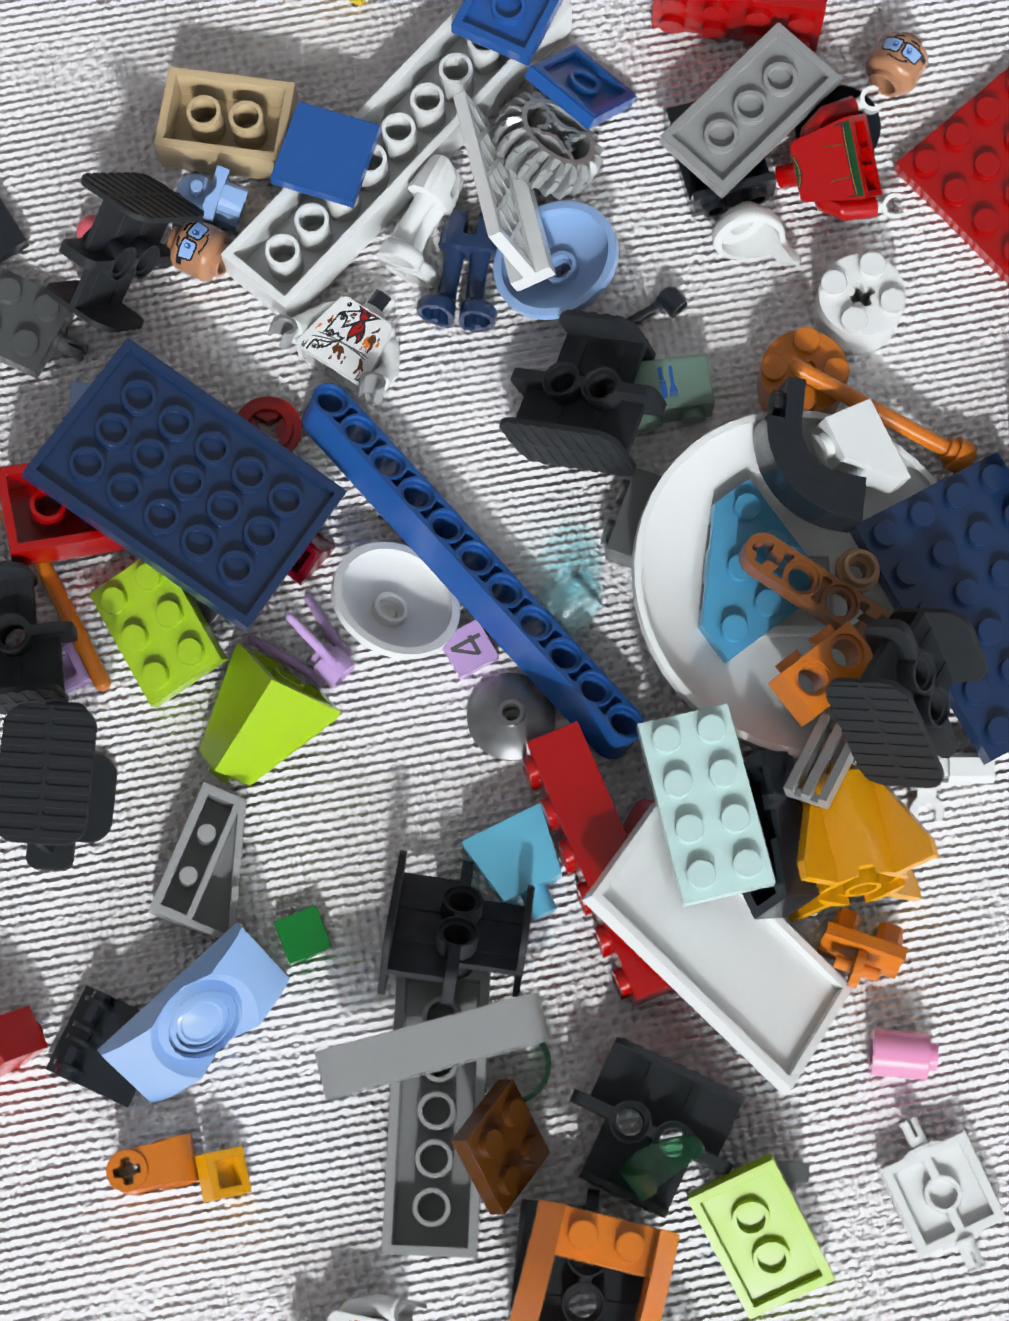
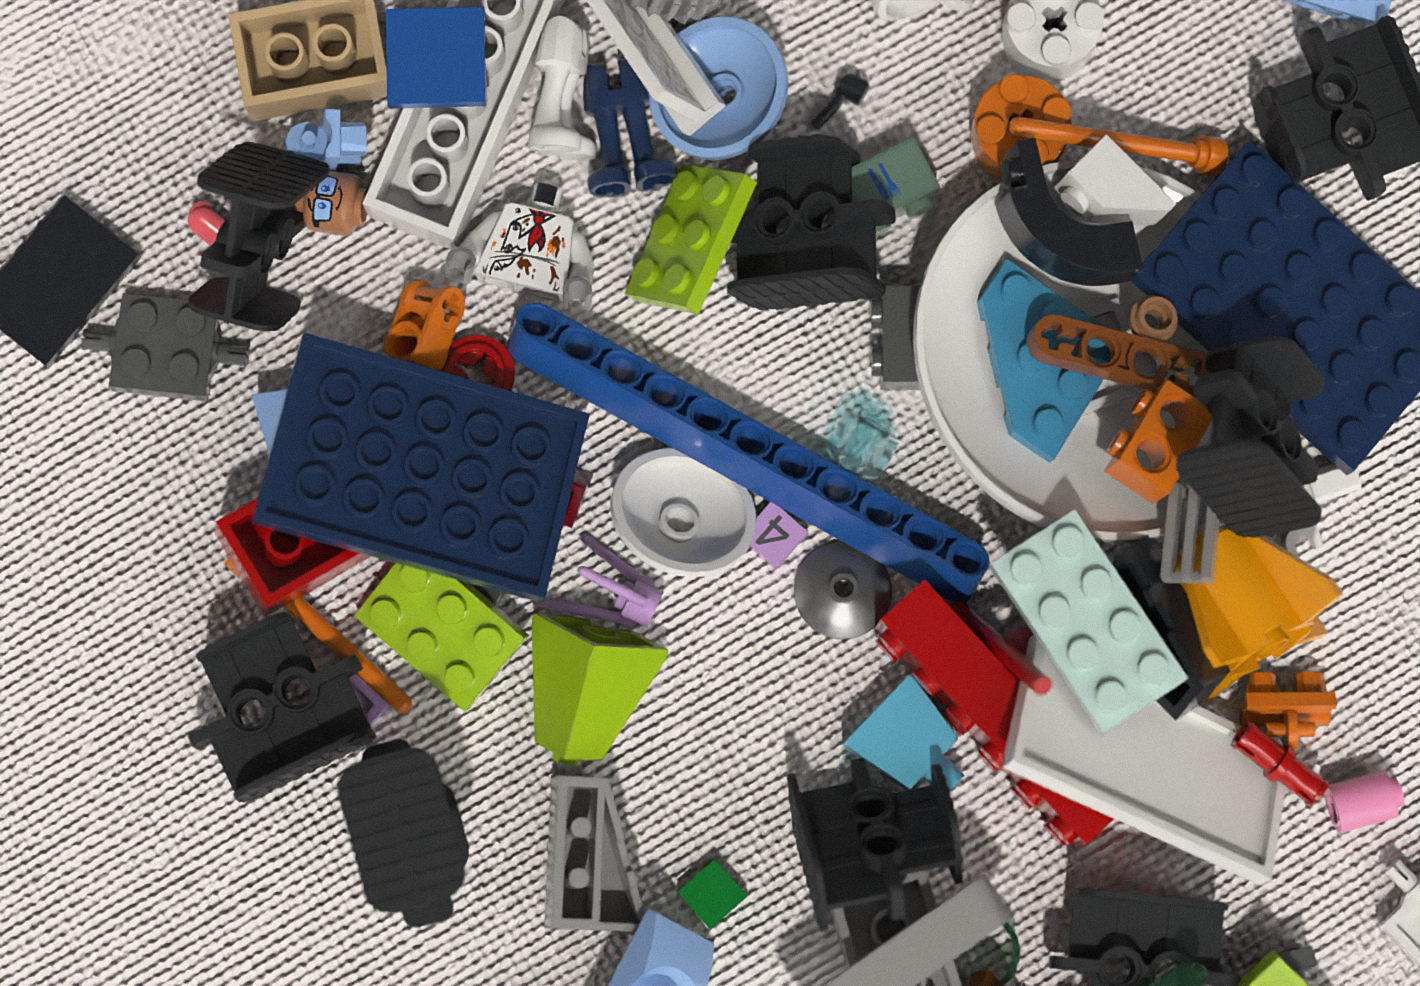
camera: 25 degrees left, 5 degrees up
(234, 374) = (422, 328): none -> orange piece
(486, 375) = (690, 238): none -> lime plate
(623, 804) = (1003, 649): none -> red bar
(836, 993) = (1279, 763): none -> red pin

